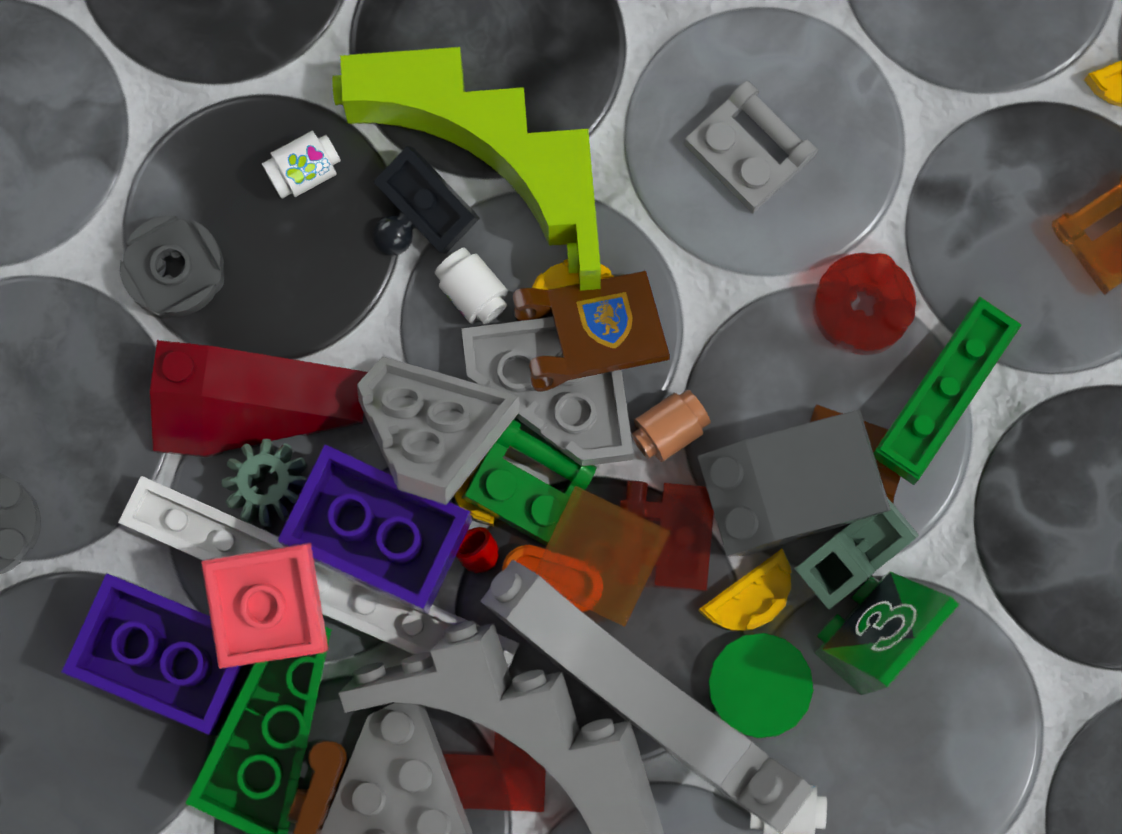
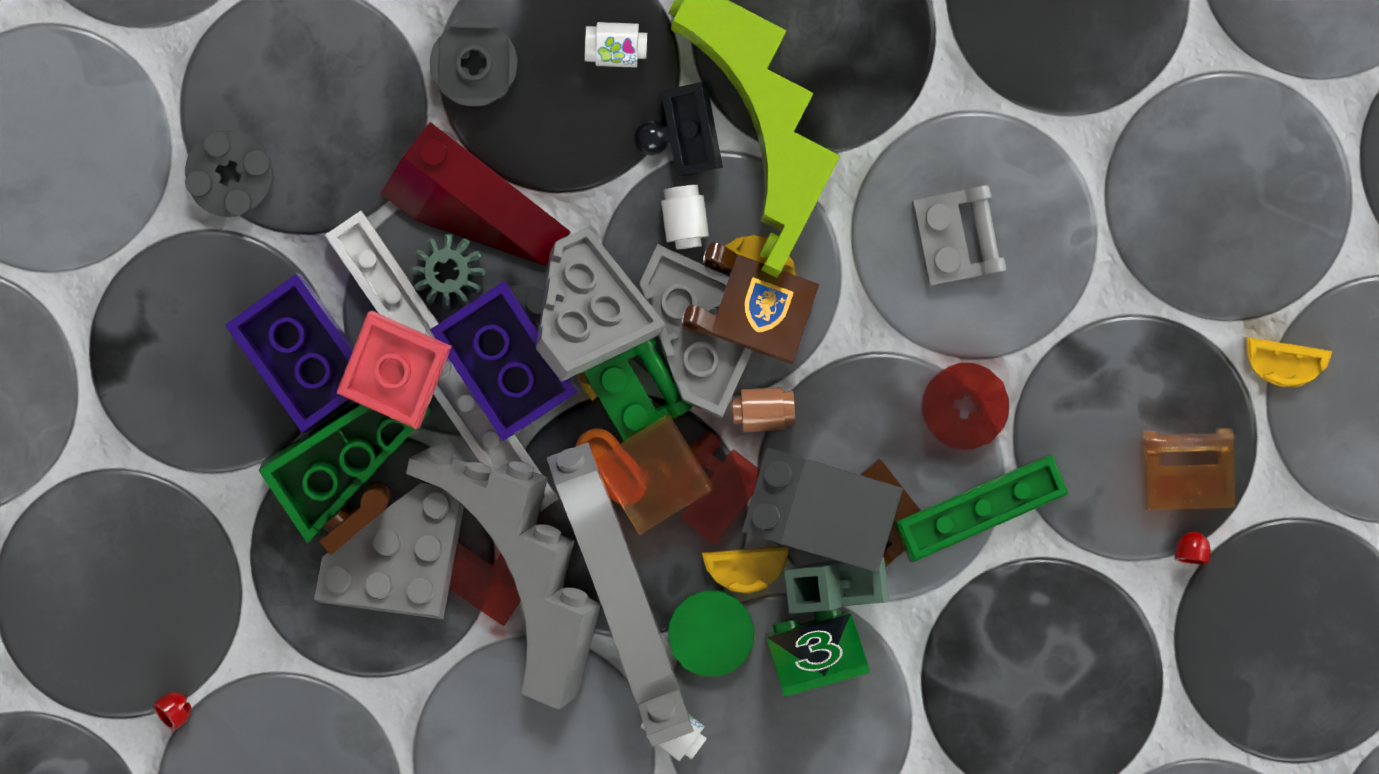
camera: 35 degrees right, 10 degrees up
(478, 550) = (570, 414): red hinge -> none

